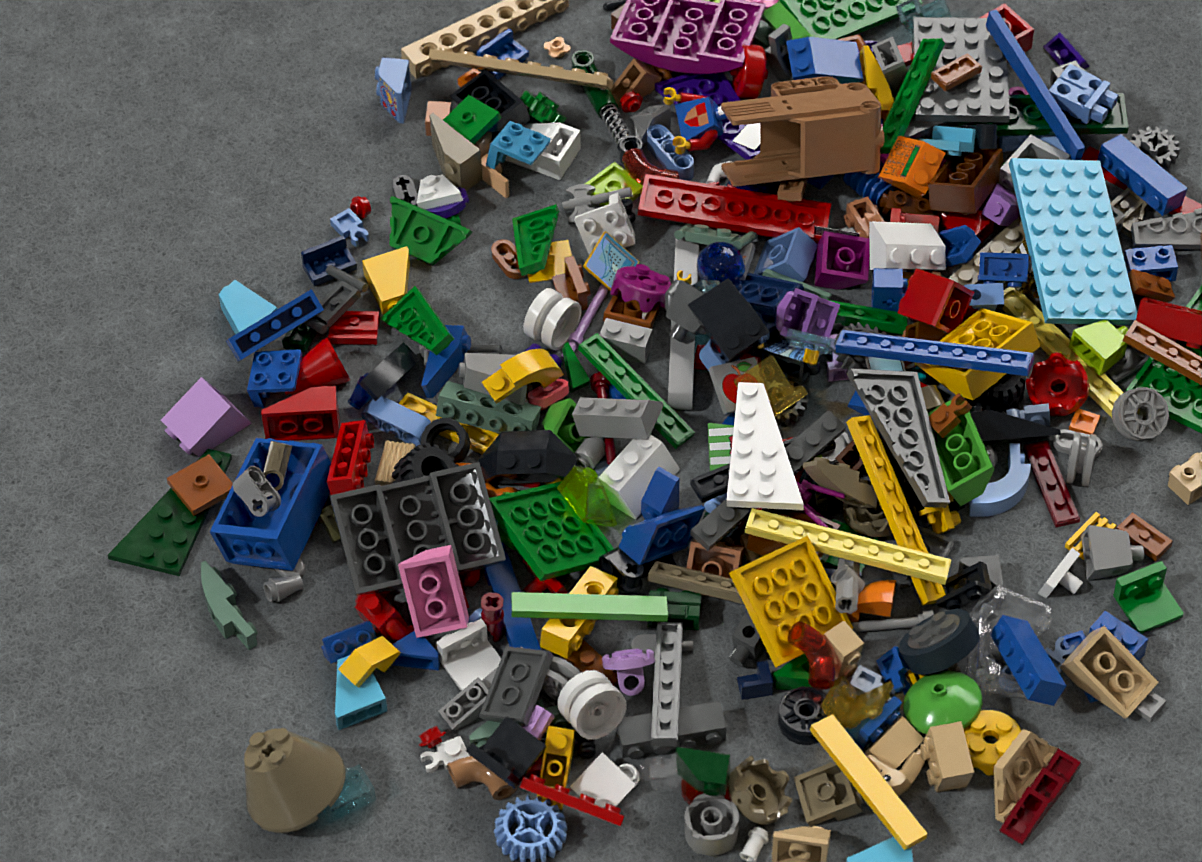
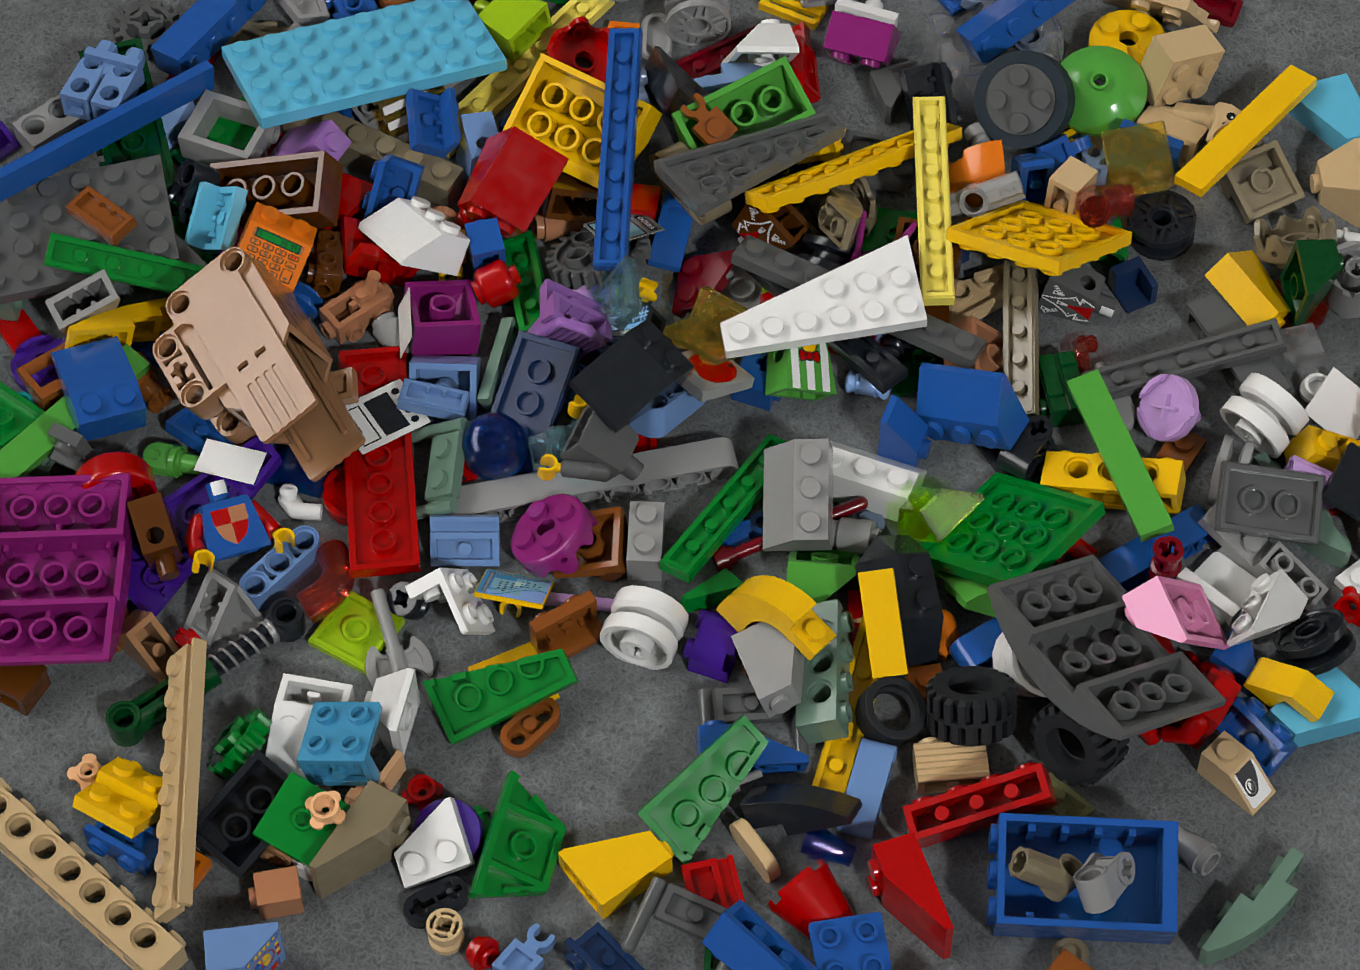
camera: 105 degrees left, 5 degrees up
(324, 622) = (1235, 773): none -> tan slope
(373, 351) = (755, 850): none -> tan tile
(380, 190) = (441, 938): none -> tan wheel
(402, 693) = (1316, 641): none -> black wheel
(436, 671) = (1269, 607): none -> white slope
(466, 123) = (325, 800): none -> light nougat plate
(484, 194) = (422, 783): none -> red plate
(498, 433) = (883, 623): none -> yellow tile
(526, 47) = (122, 797): none -> yellow plate
(536, 187) = (399, 704): none -> white slope
(659, 246) = (464, 540): none -> medium blue plate
(703, 79) = (157, 534): none -> reddish brown torso
(704, 632) = (1082, 348): none -> clear red arm
(722, 736) = (1248, 288): none -> yellow slope
(766, 214) = (380, 418): none -> sticker
(768, 240) = (433, 400): none -> medium blue plate
(842, 413) = (697, 273): none -> dark red wing
(858, 291) = (496, 283): none -> red head
(875, 635) = (1034, 174): none -> blue slope
(1026, 524) = (805, 63): none -> red hinge
(1028, 552) = (860, 40): none -> magenta slope
(1037, 493) = (766, 44): none -> white slope

